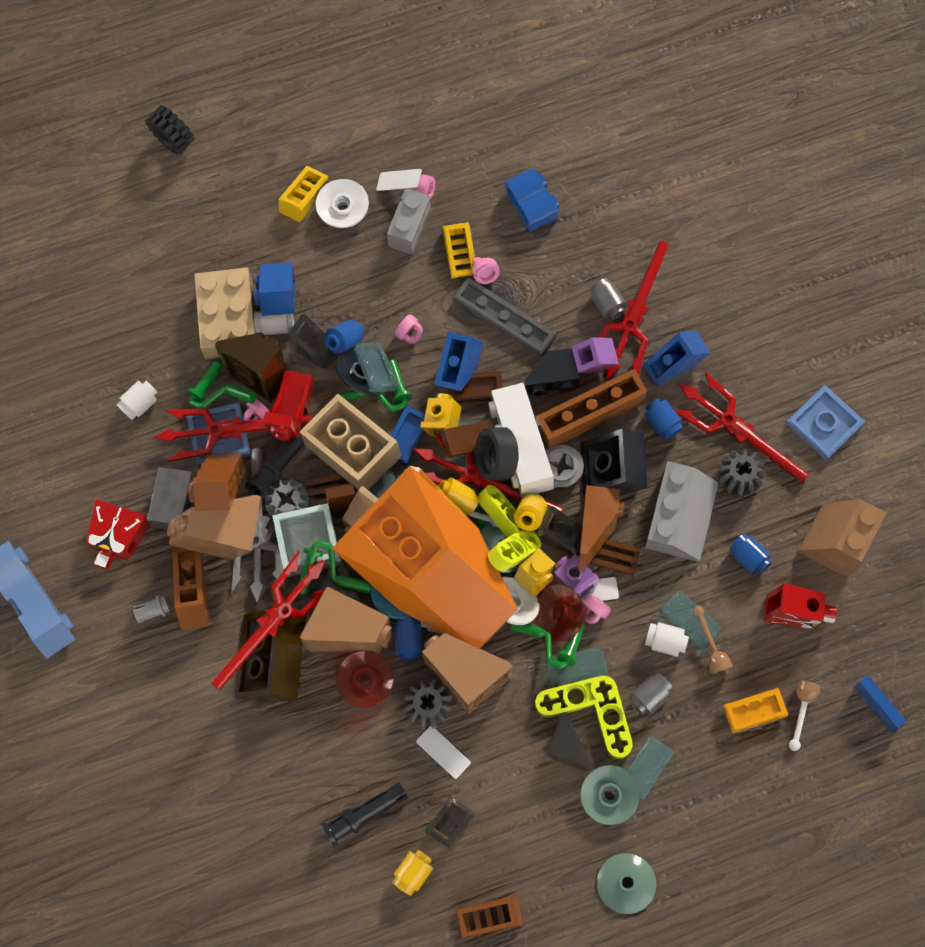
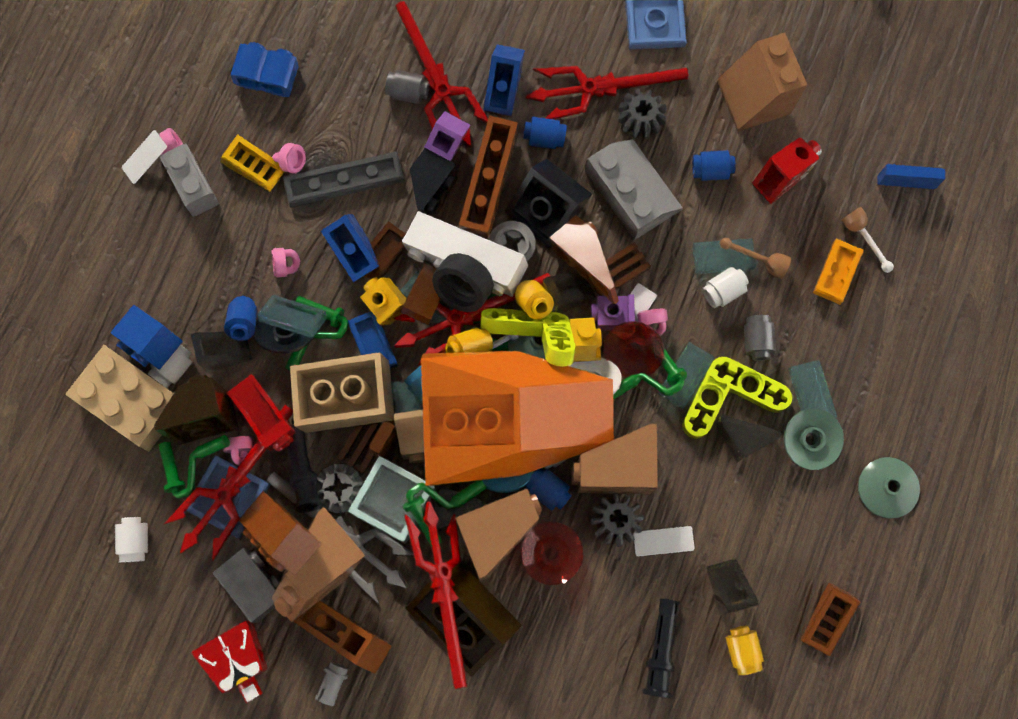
camera: 55 degrees left, 5 degrees up
(295, 207) = (82, 262): yellow slope -> none
(341, 193) = (113, 209): white dish -> none

